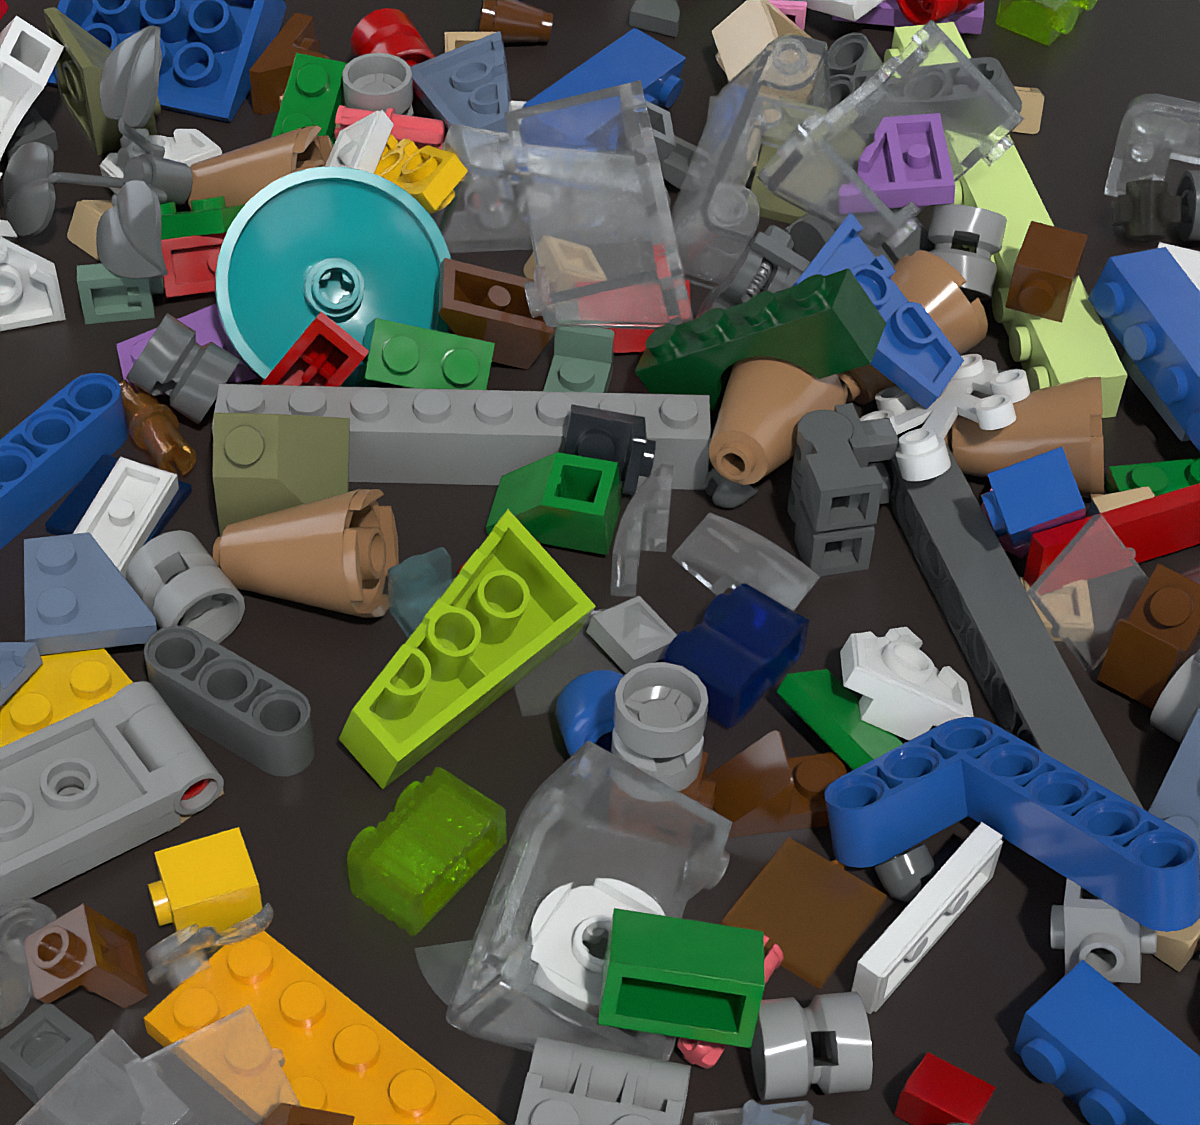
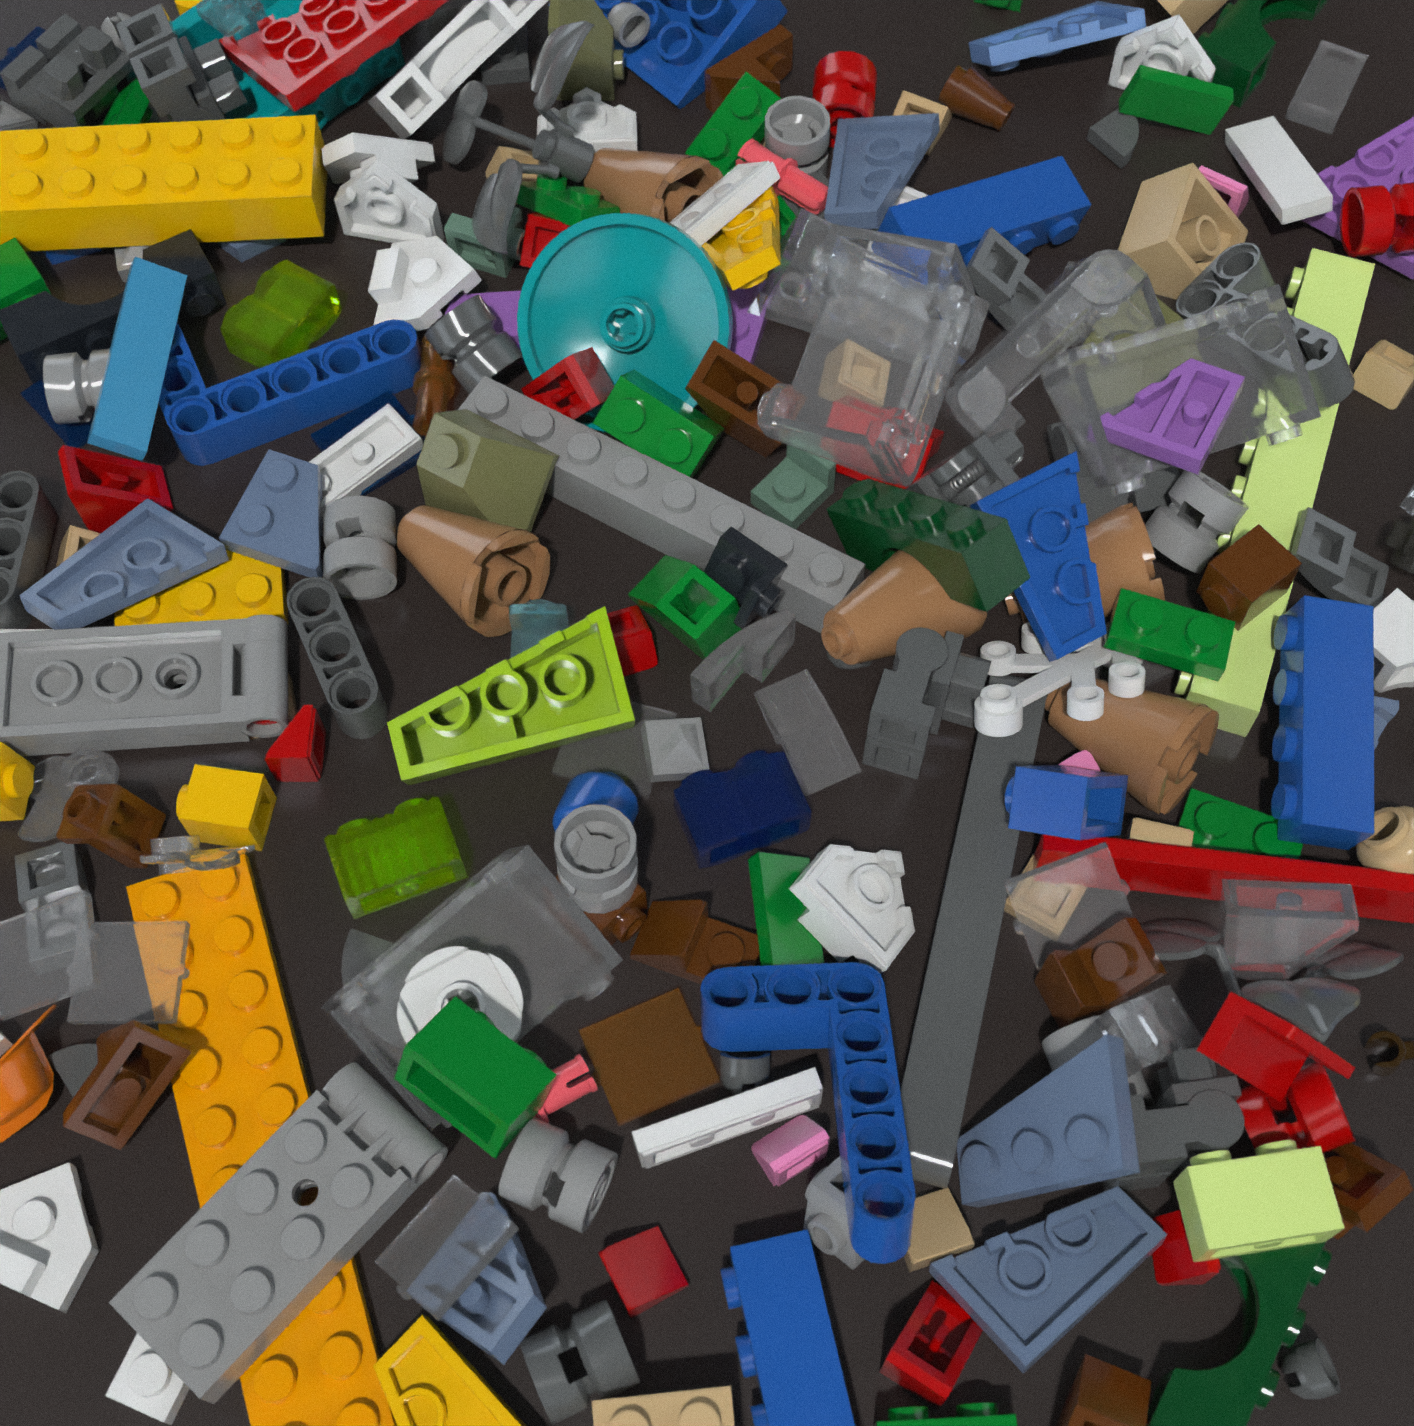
camera: 35 degrees right, 15 degrees up
(76, 339) = (418, 280): none -> white plate
(252, 798) = (299, 749): none -> red slope
(1000, 917) = (791, 1149): none -> bright pink slope
(1014, 342) = (1169, 634): none -> green plate
(1098, 245) = (1334, 563): none -> dark grey slope

